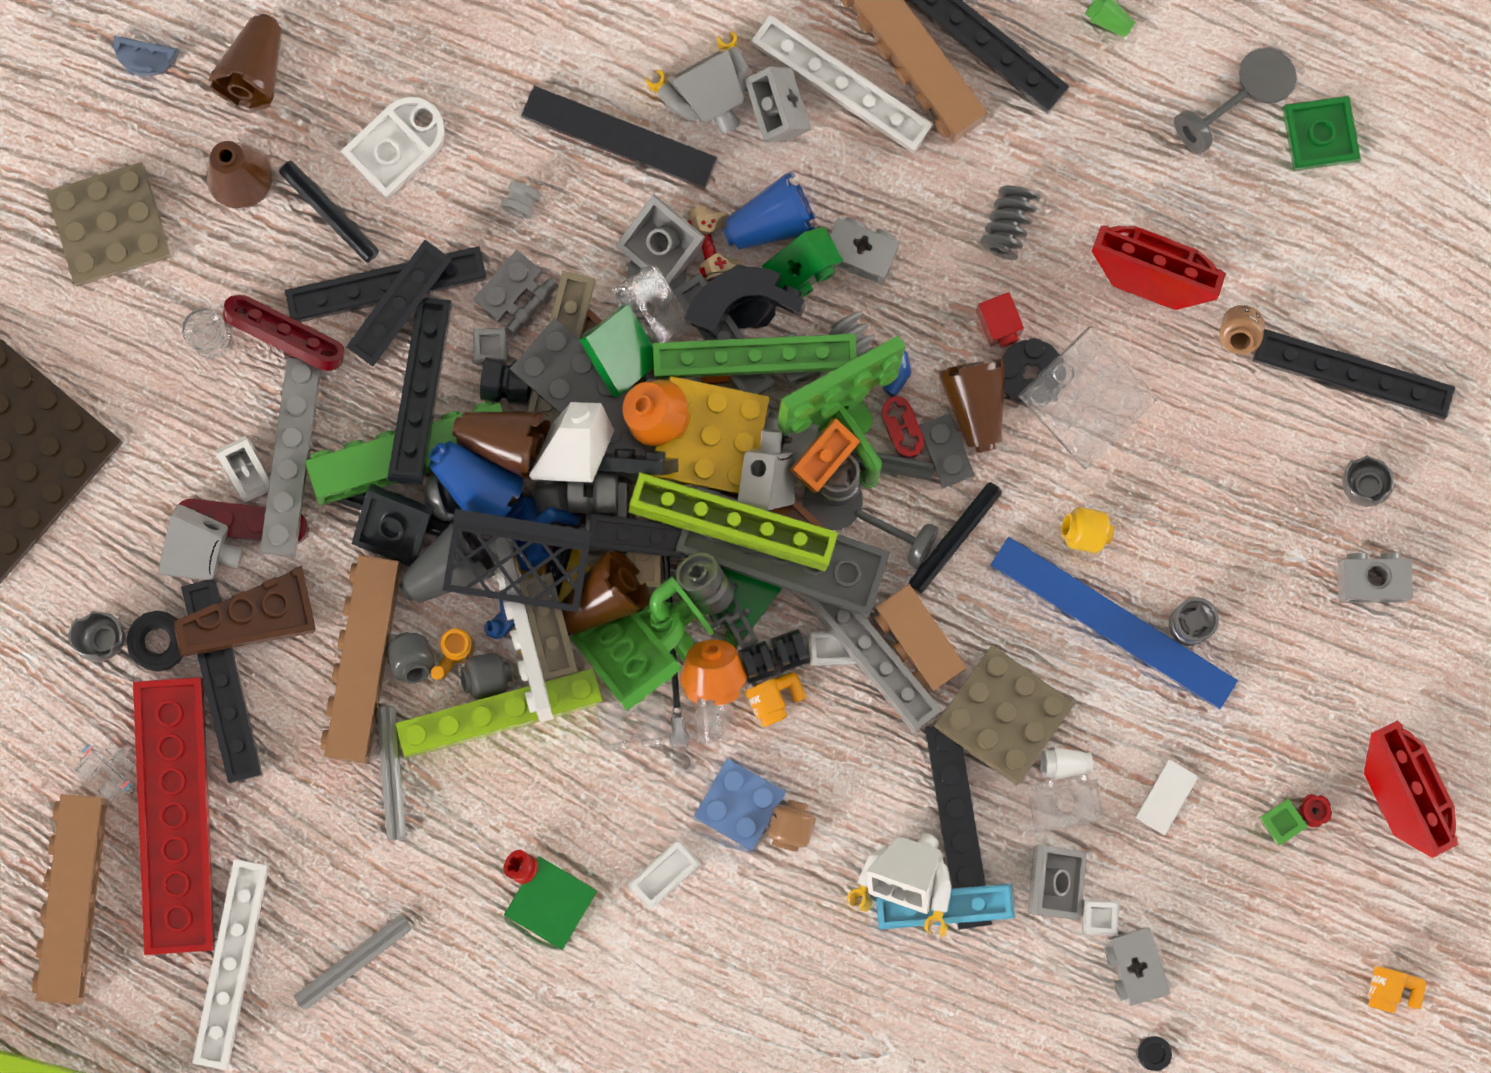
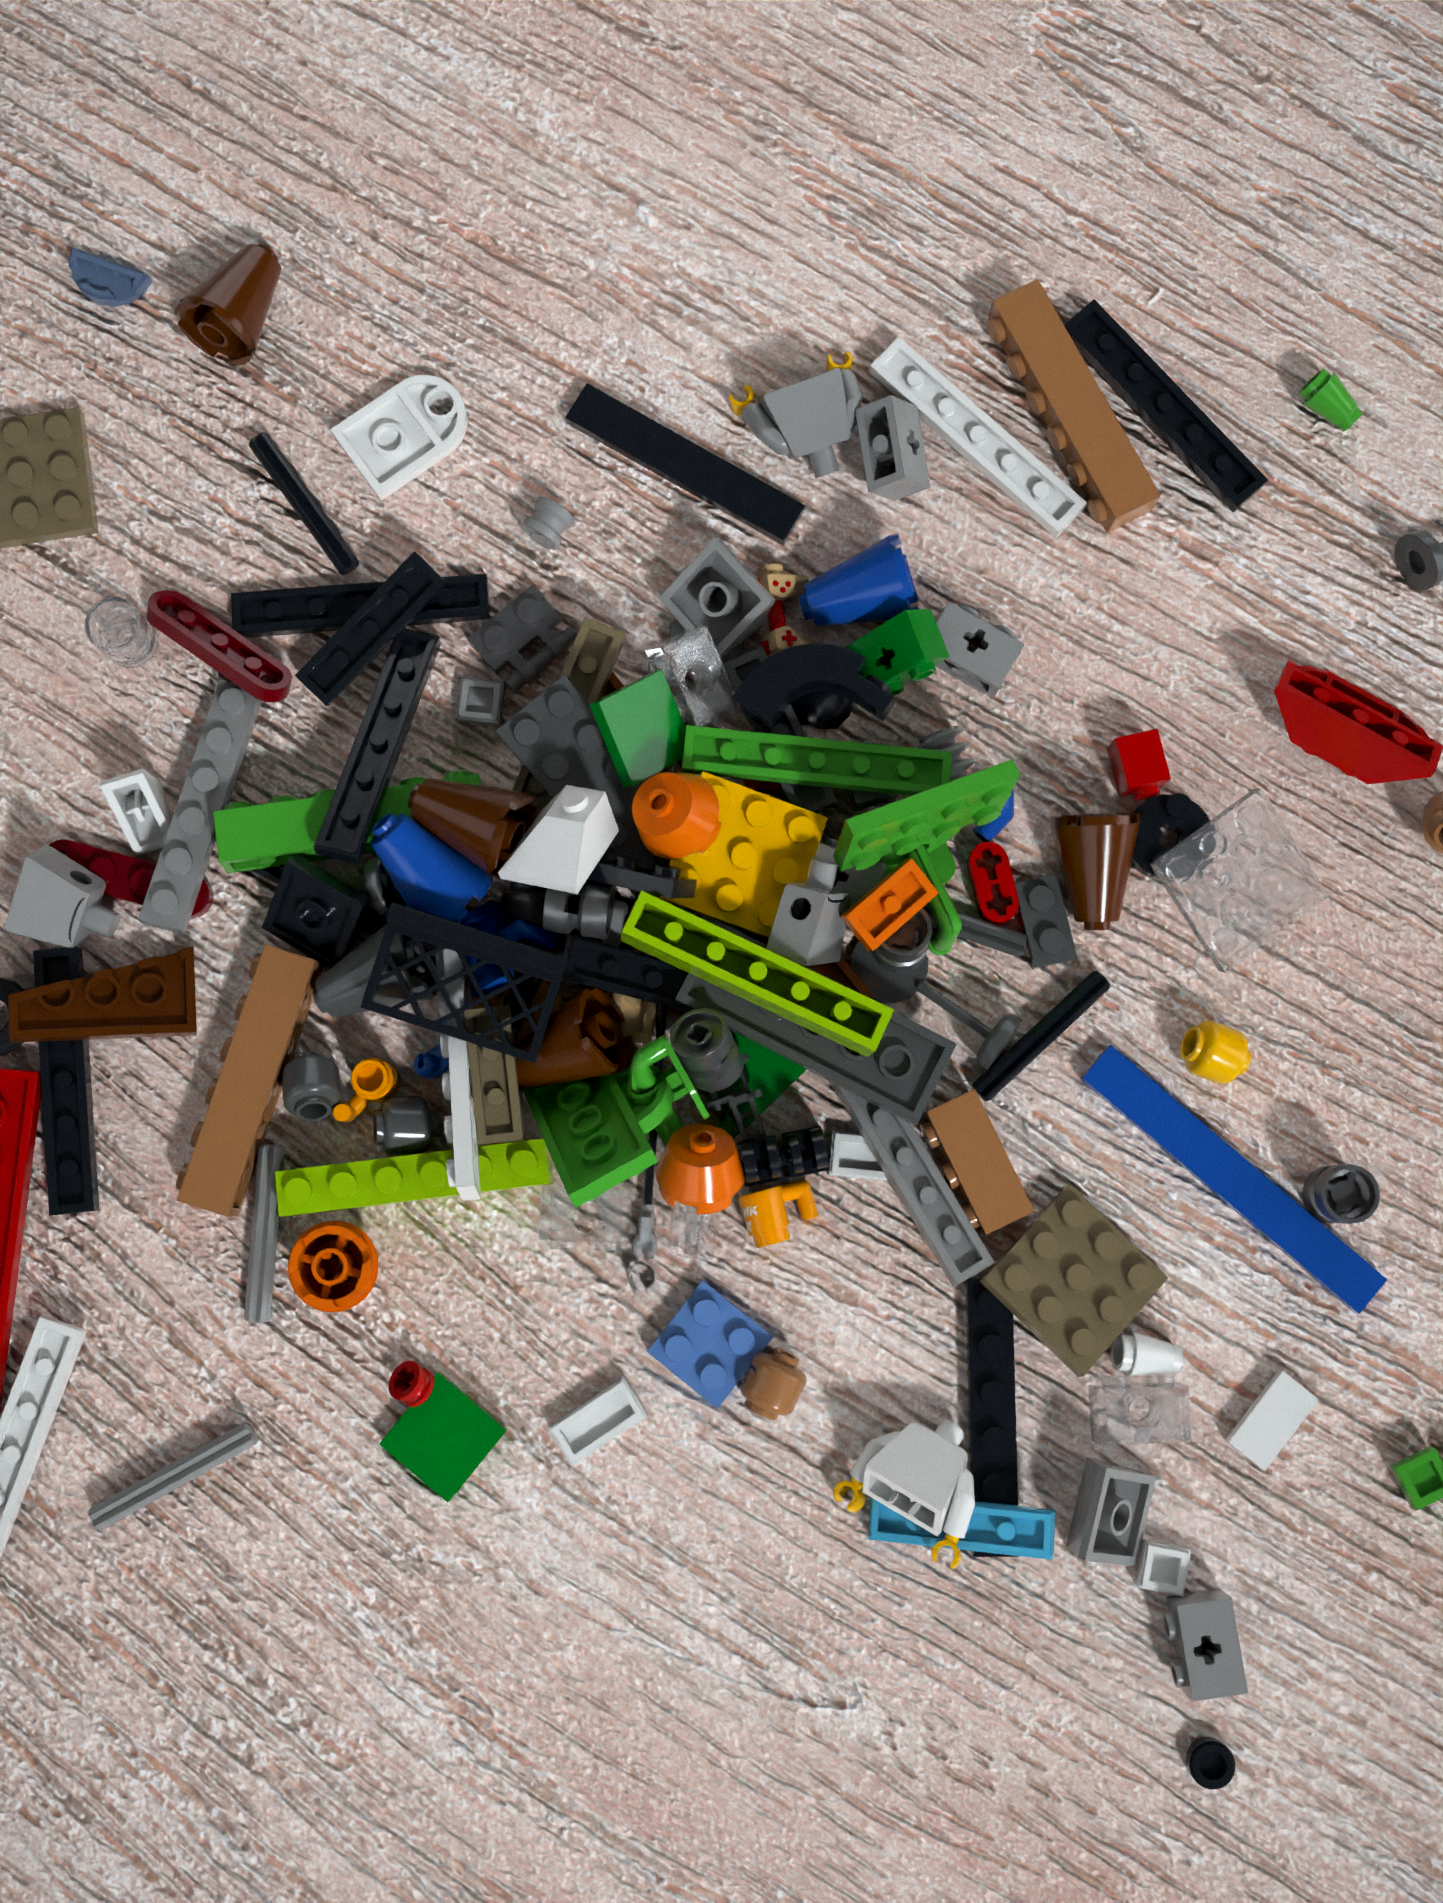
camera: 10 degrees right, 0 degrees up
(238, 175) = (194, 436): reddish brown cone -> none
(449, 787) = (333, 1266): none -> orange cone
(500, 383) = (482, 749): black wheel -> none
(1007, 221) = (1166, 636): dark grey piece -> none

